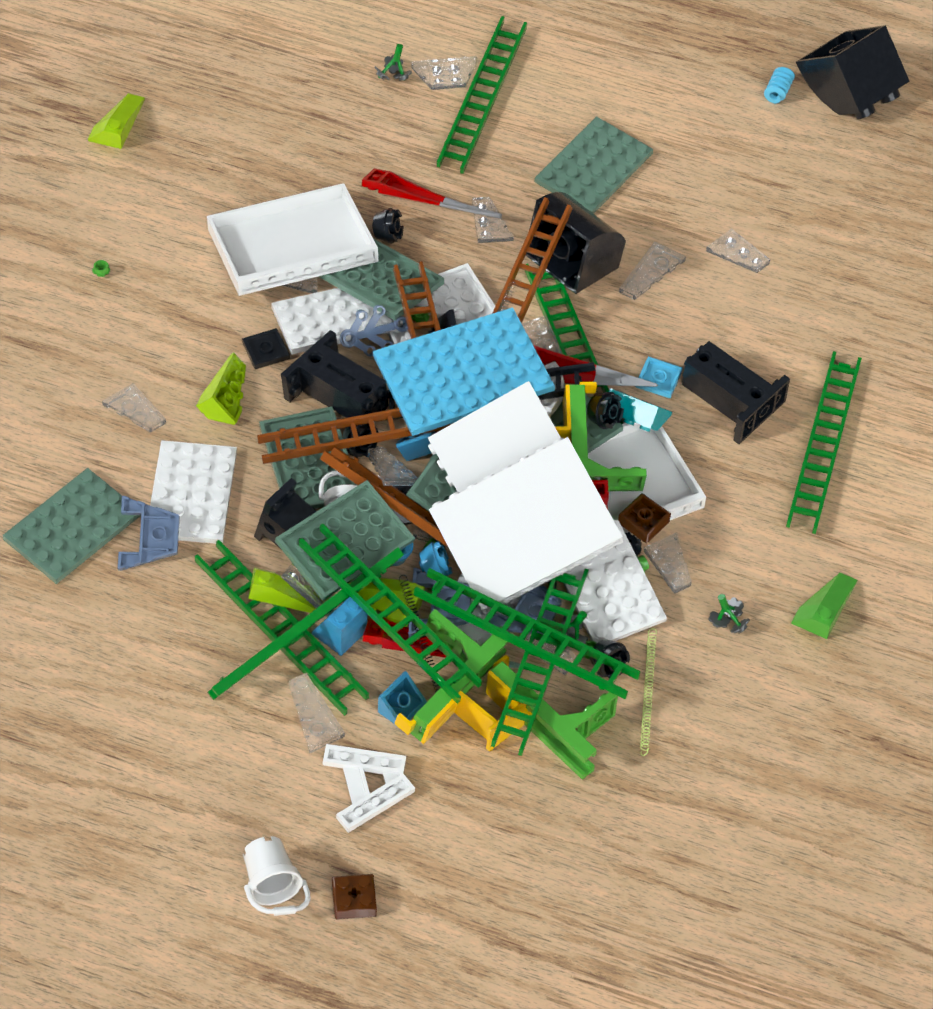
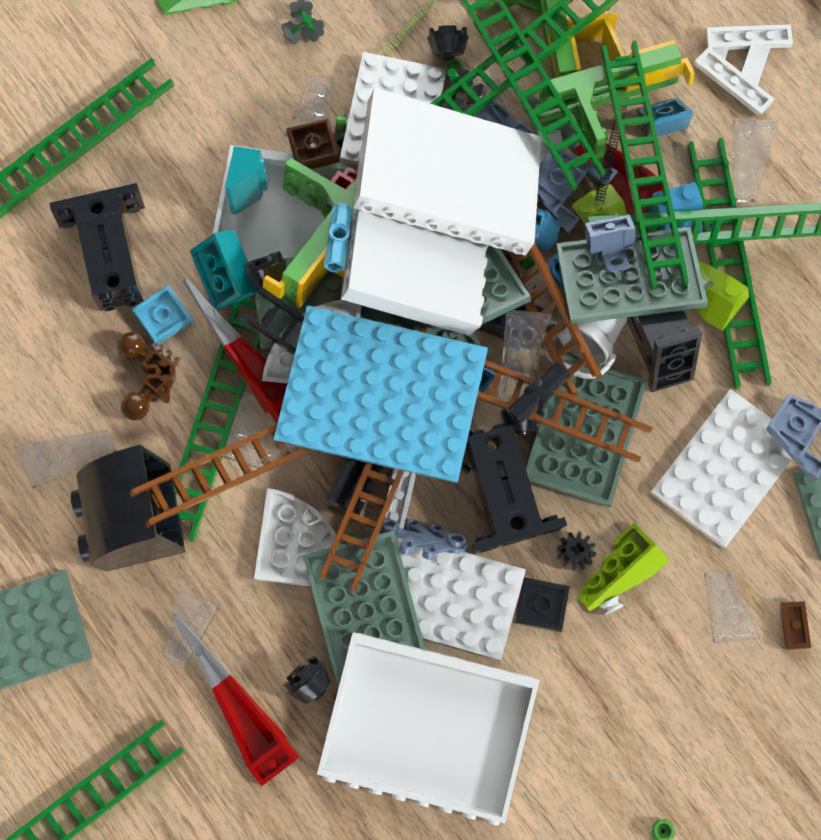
camera: 145 degrees left, 20 degrees up
(82, 419) = (795, 625): none -> reddish brown plate
(216, 365) = (611, 605): none -> white bush
(264, 385) = (583, 557): none -> black gear
(356, 425) = (538, 392): none -> black piece
(373, 549) = (610, 238): none -> sand blue piece
(561, 416) = (337, 247): none -> medium azure piece
(633, 344) = (133, 346): none -> reddish brown piece
(670, 459) = (245, 178): none -> teal slope

